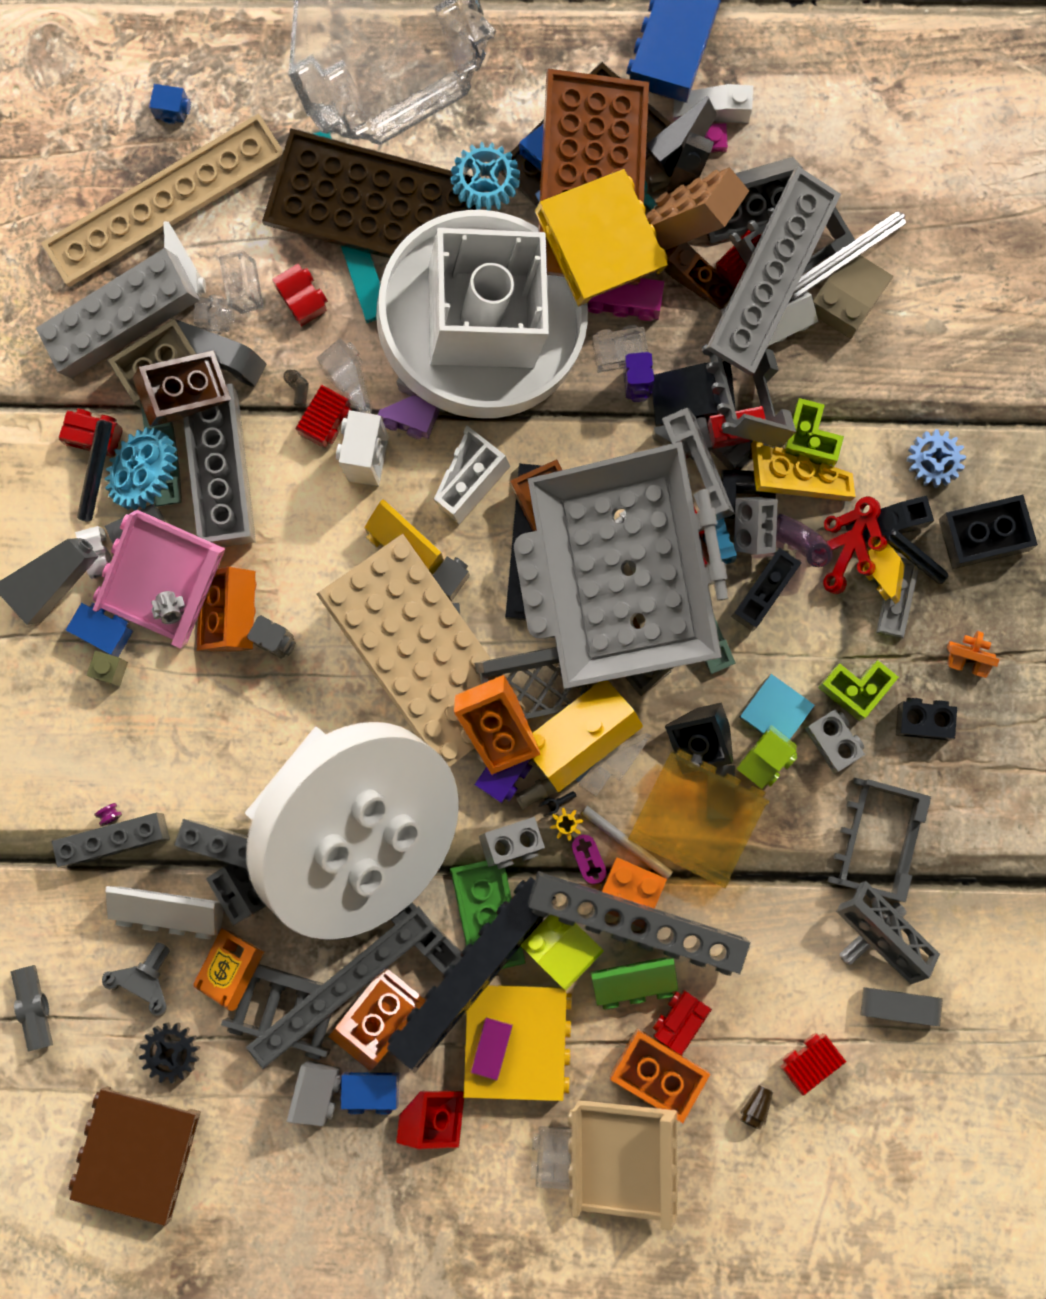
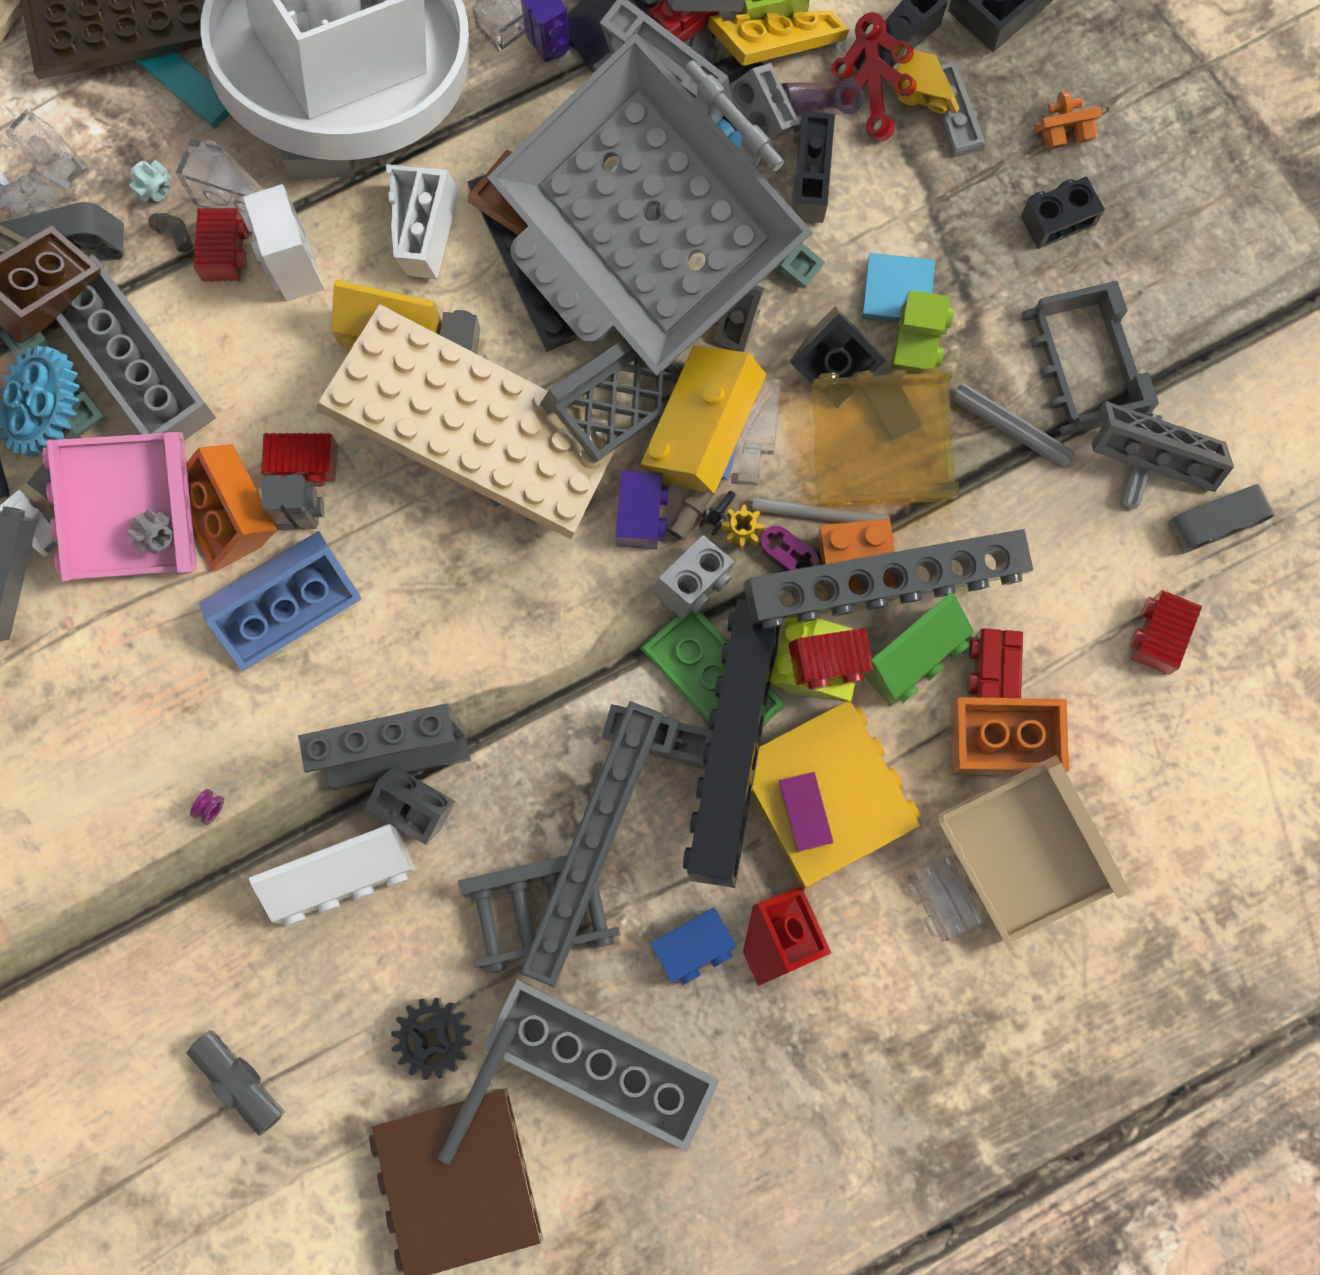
camera: 35 degrees left, 5 degrees down
(99, 629) = (84, 605): blue brick -> none
(107, 668) = (116, 642): olive brick -> none
(110, 840) = (225, 833): dark grey brick -> none
(142, 979) = (351, 972): dark grey axle -> none
(177, 1108) = (478, 1091): none -> dark grey bar
(225, 974) = (448, 908): orange container -> none
(228, 699) = (279, 601): none -> medium blue slope
(270, 1144) = (605, 1065): none -> light grey brick
(295, 605) = (300, 454): none -> red brick
(300, 295) = (120, 132): red brick -> none
(300, 343) = (150, 181): none -> light aqua gear
(314, 1094) = (631, 983): light grey slope -> none
(351, 829) = (503, 640): white piece -> none
(375, 1018) = (650, 862): orange slope -> none
(411, 415) = (321, 192): medium lavender slope -> none
(496, 724) = (604, 449): orange slope -> none
(565, 957) = (831, 657): none -> red brick
(757, 1108) = (1135, 717): dark brown cone -> none
(797, 856) = (1013, 425): none -> light grey axle
(829, 745) = (975, 291): light grey brick -> none
(857, 694) = (973, 220): lime brick -> none
(916, 556) = (951, 52): black axle -> none

